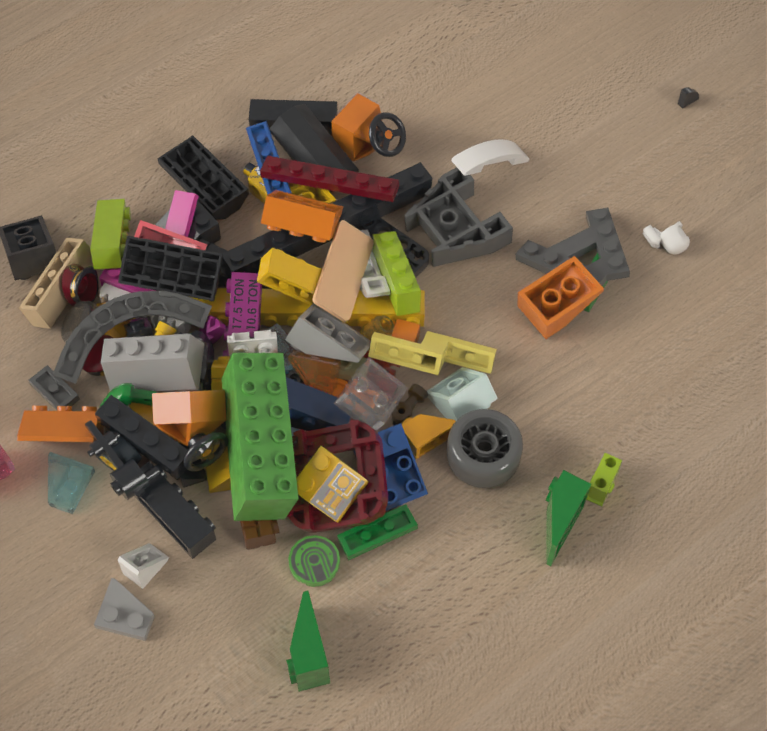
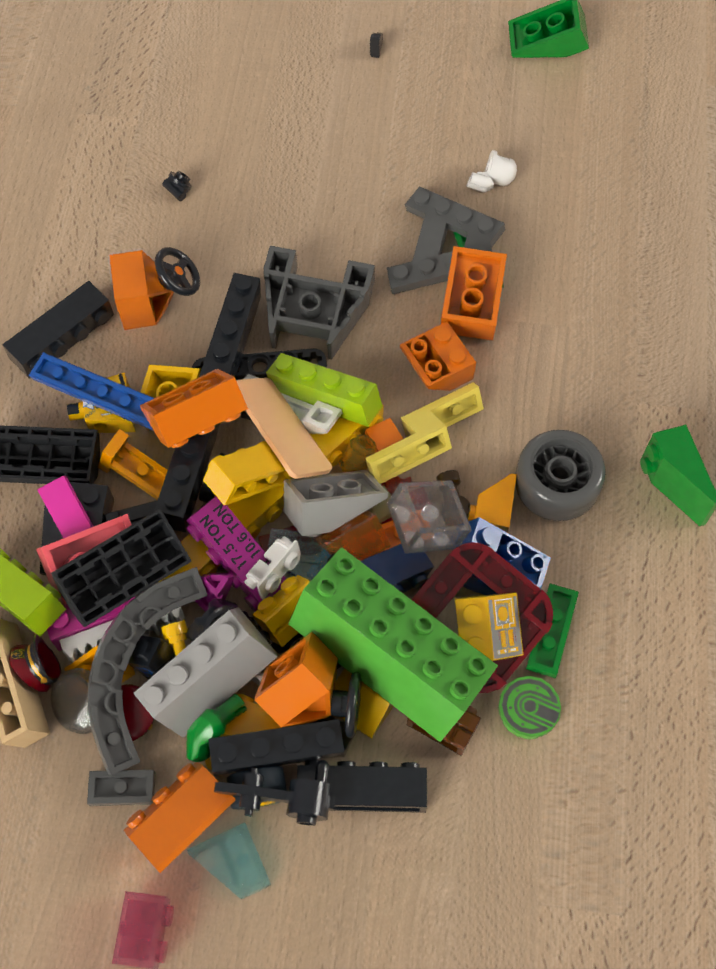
camera: 45 degrees left, 5 degrees up
(123, 613) = (426, 924): light grey wing -> none
(142, 564) = (394, 861): white slope -> none
(245, 218) = (133, 465): none -> light orange bracket
(308, 140) = (113, 341): black piece -> none
(308, 659) = (623, 788): green slope -> none
(329, 178) = (173, 354): dark red plate -> none
(458, 88) = (177, 184): none -> black plate
(462, 393) = (485, 447): light aqua slope -> none
(490, 152) = (280, 221): white slope -> none
(492, 318) = (440, 358): none -> orange slope
(603, 479) = (668, 409): lime piece -> none

